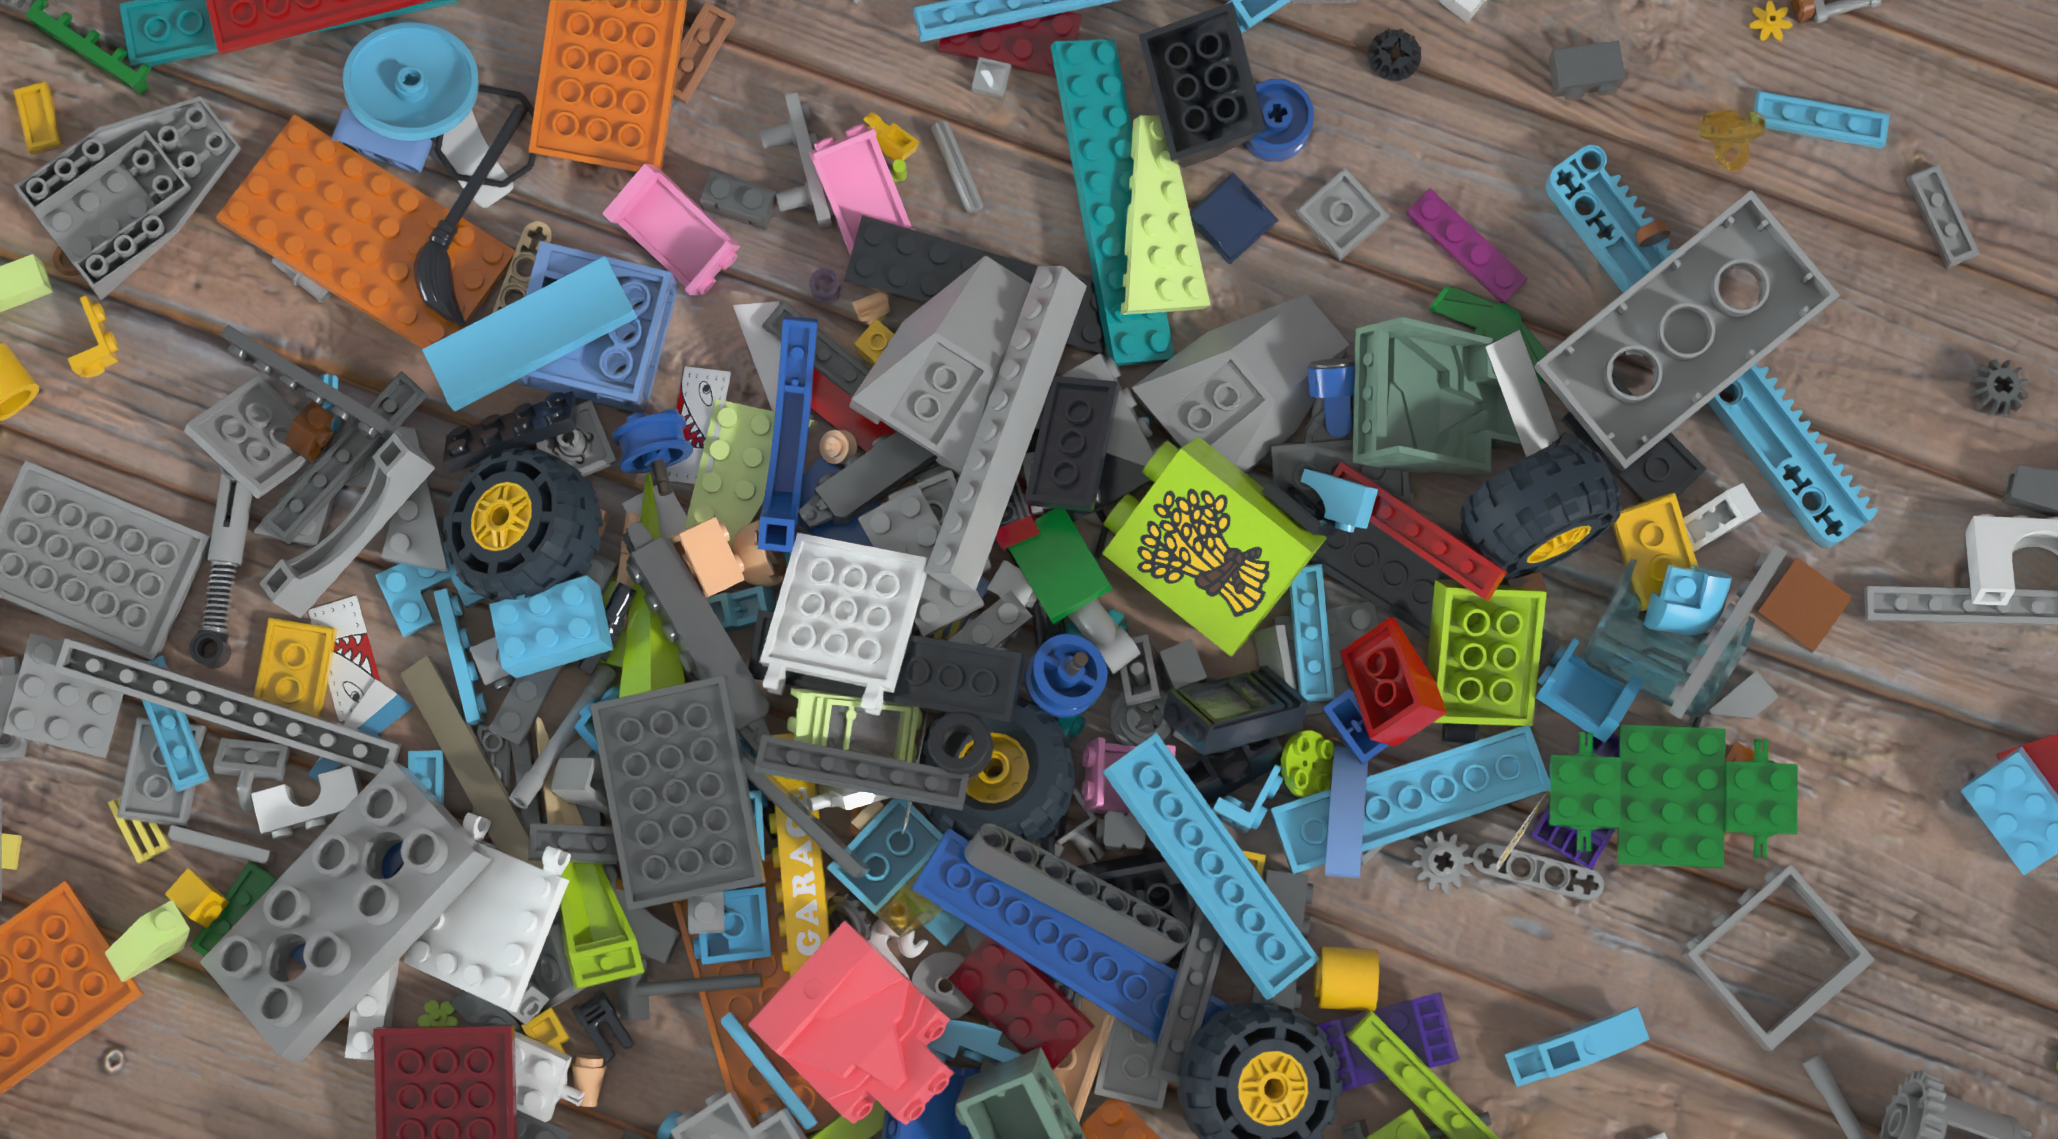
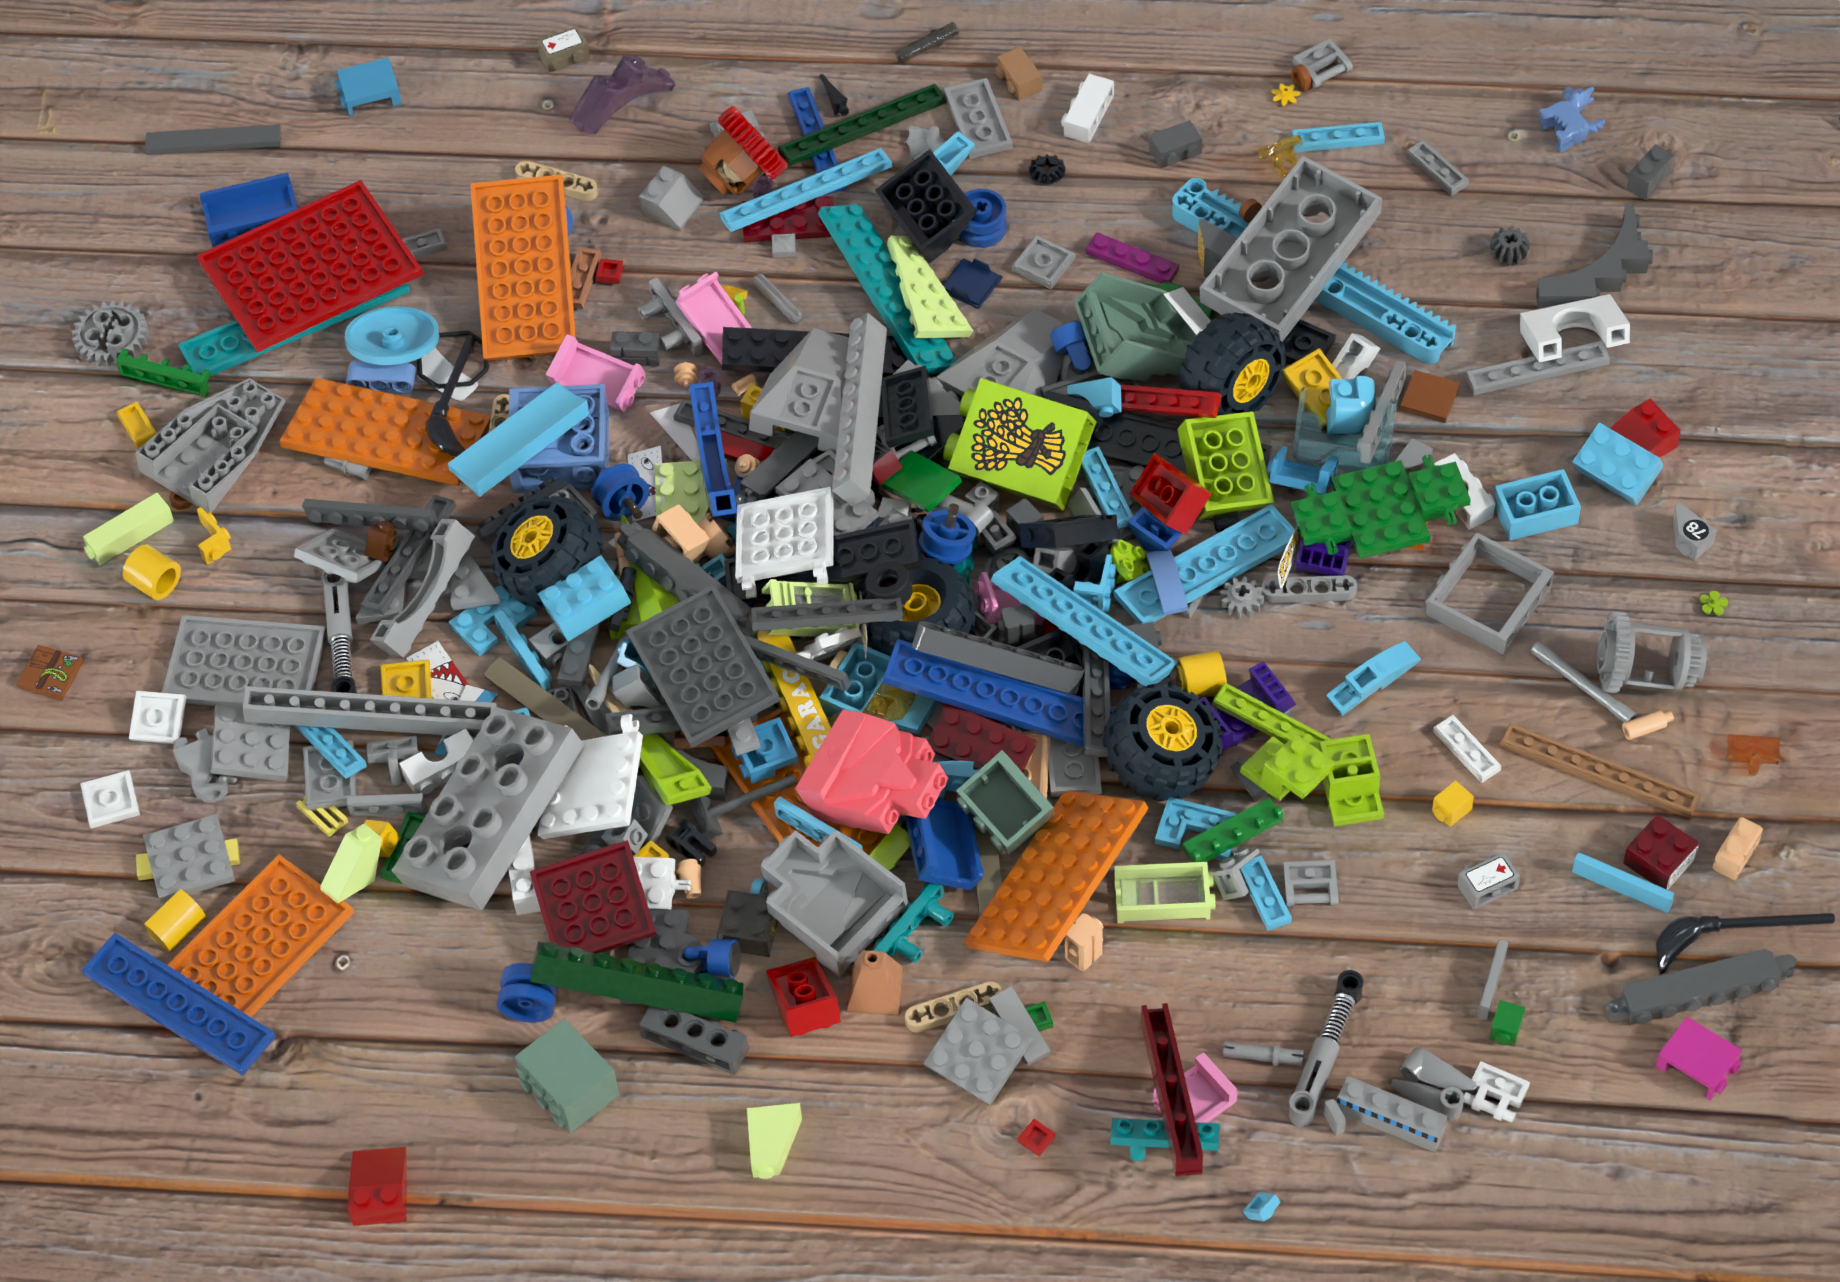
camera: 15 degrees left, 25 degrees down
(738, 53) = (609, 271): none -> red plate
(796, 262) = (685, 374): none -> light nougat wheel
(1137, 604) = (985, 495): none -> light grey brick
(1583, 285) = (1212, 245): none -> dark grey slope
(1797, 747) = (1482, 504): none -> white arch
(1888, 840) = (1536, 504): none -> medium azure brick

